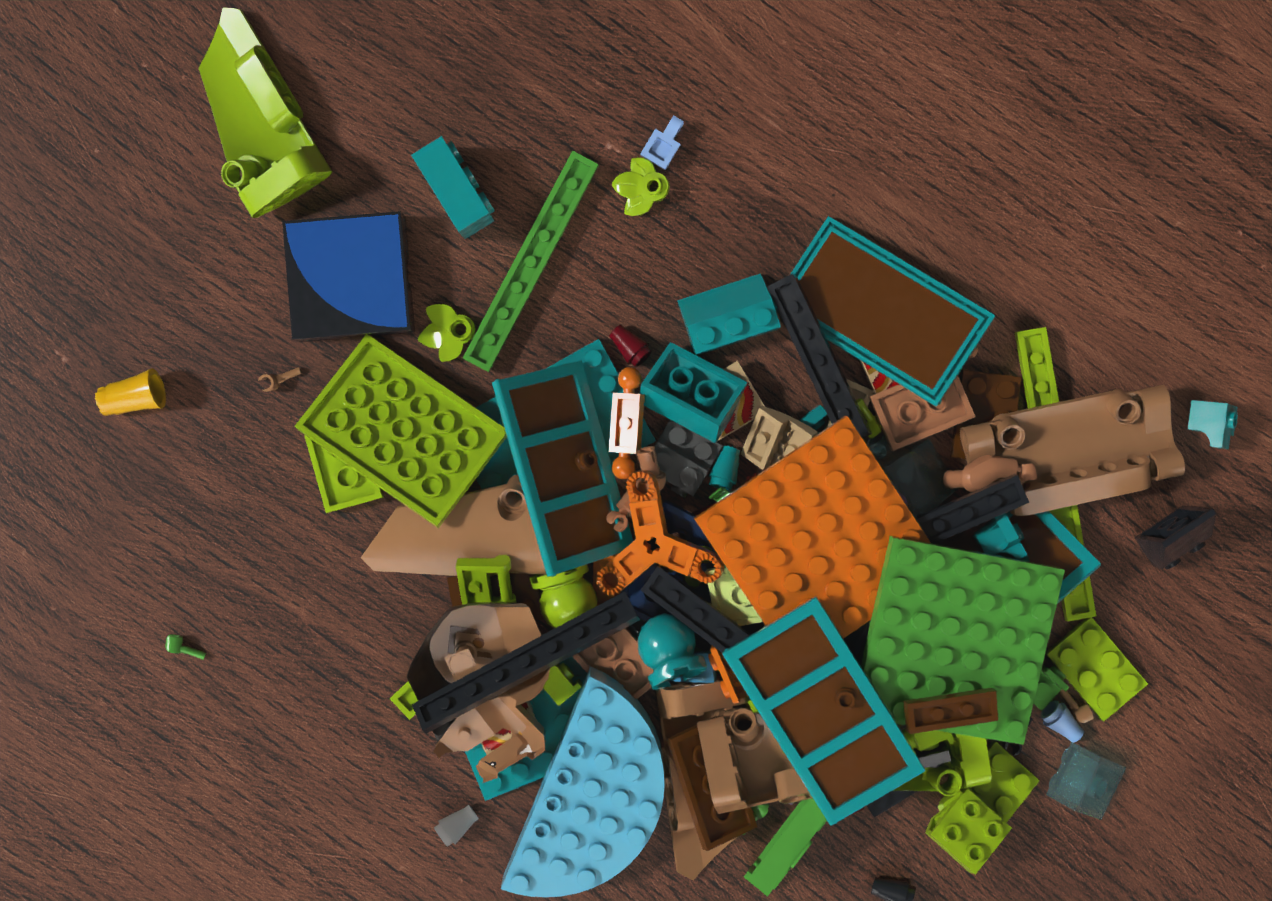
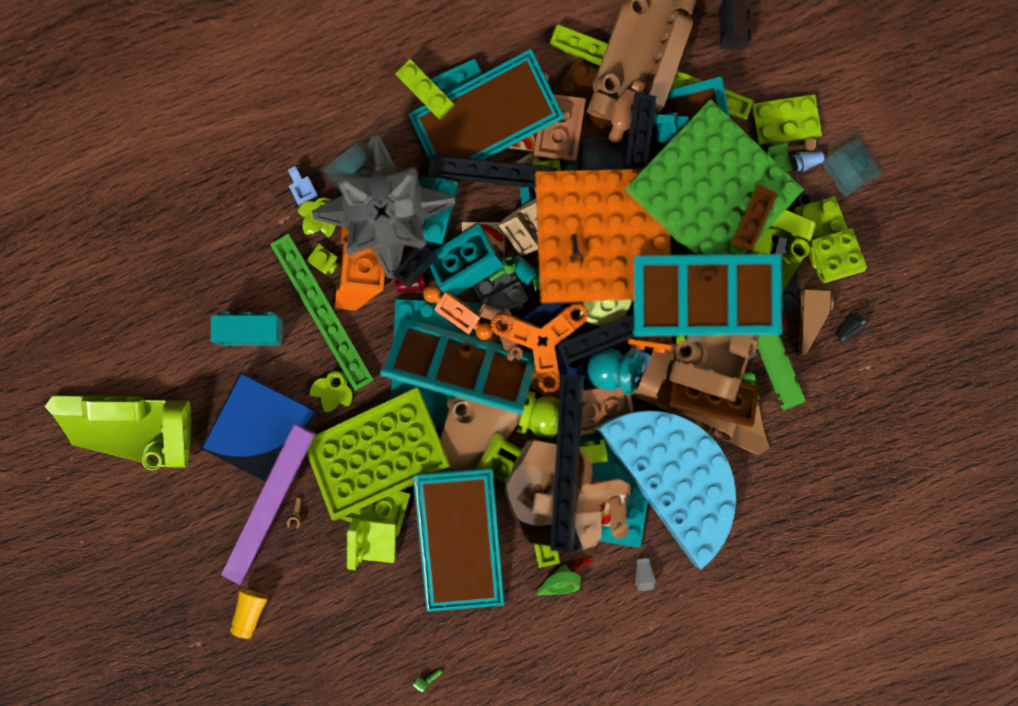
camera: 60 degrees left, 5 degrees down
(268, 340) = (268, 503): none -> medium lavender tile
(299, 486) = (370, 541): none -> lime bracket
(363, 587) = (458, 539): none -> reddish brown door
(396, 735) = (564, 579): none -> bright green piece
(593, 226) = (324, 260): none -> lime bracket
(610, 275) = (360, 277): none -> orange piece
(651, 338) = (415, 266): none -> black plate
(711, 235) = (380, 186): none -> dark grey piece
(713, 447) = (509, 269): none -> bright green hand
(721, 189) = (348, 163): none -> clear light blue slope
(779, 523) = (575, 249): none -> hand
(869, 217) = (424, 89): none -> lime plate
(881, 839) = (814, 310): none -> medium nougat slope
(897, 240) = (457, 76): none -> teal plate

